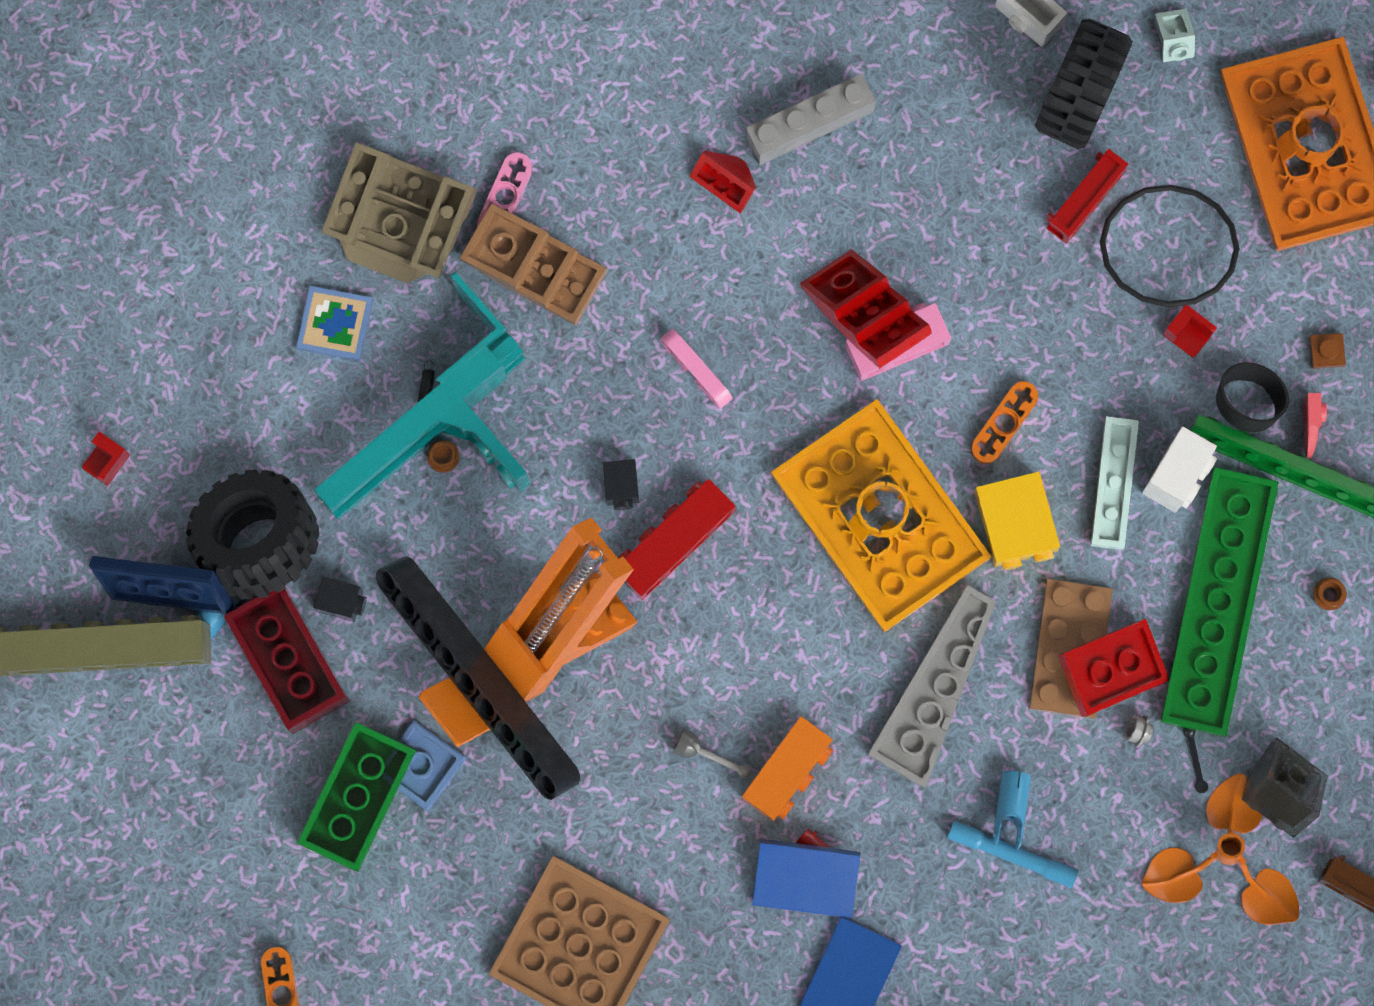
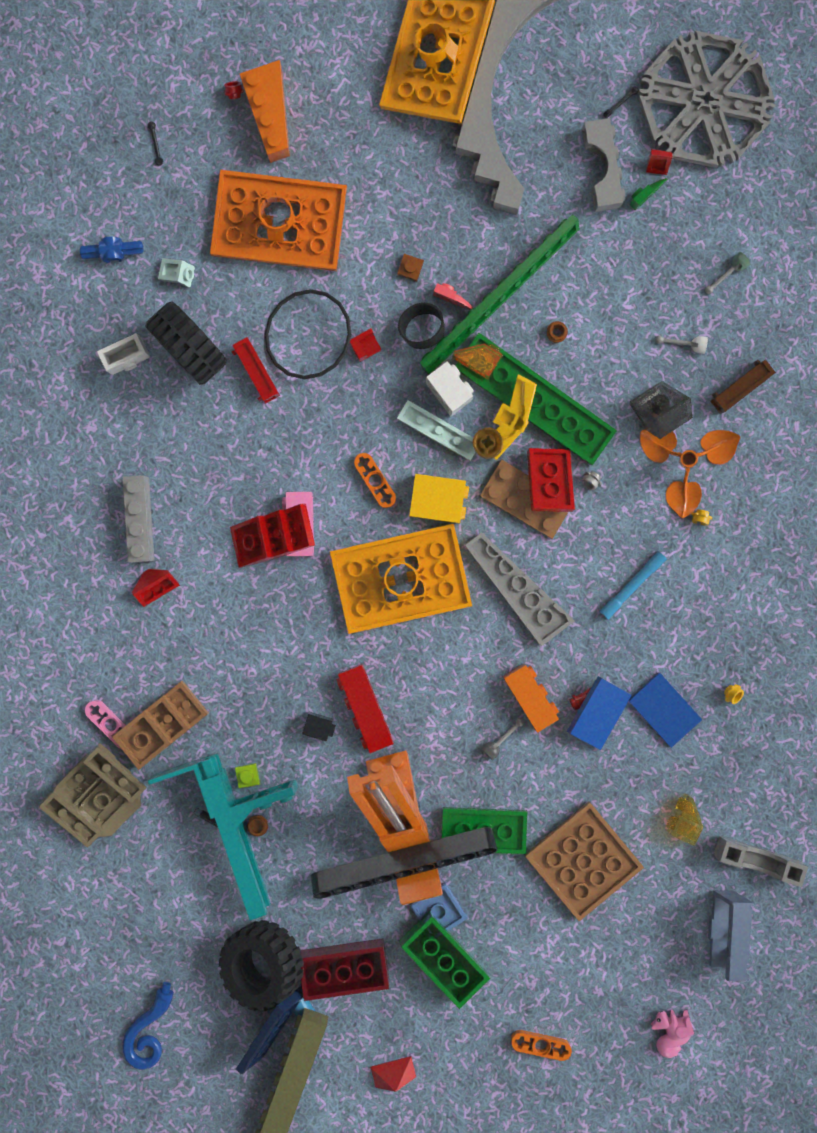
camera: 75 degrees left, 10 degrees up
(105, 459) = (176, 1029): red panel -> none
(130, 423) = (160, 1006): none -> blue plant
(158, 795) = (393, 1074): none -> red slope
(334, 323) = (148, 859): tile -> none
(340, 599) = (320, 923): black brick -> none
(509, 413) = (247, 775): none -> lime plate
(582, 812) = (507, 825): none -> green plate
(690, 361) = (265, 653): bright pink beam -> none
(1012, 803) = (605, 574): dark azure piece -> none
(1119, 565) = (494, 449): none -> pearl gold wheel
(1156, 913) = (701, 516): none -> yellow plate
(1176, 575) = (514, 418): none -> yellow plate
(1201, 786) = (638, 457): black hinge -> none
(1241, 495) = (479, 358): none -> clear yellow slope

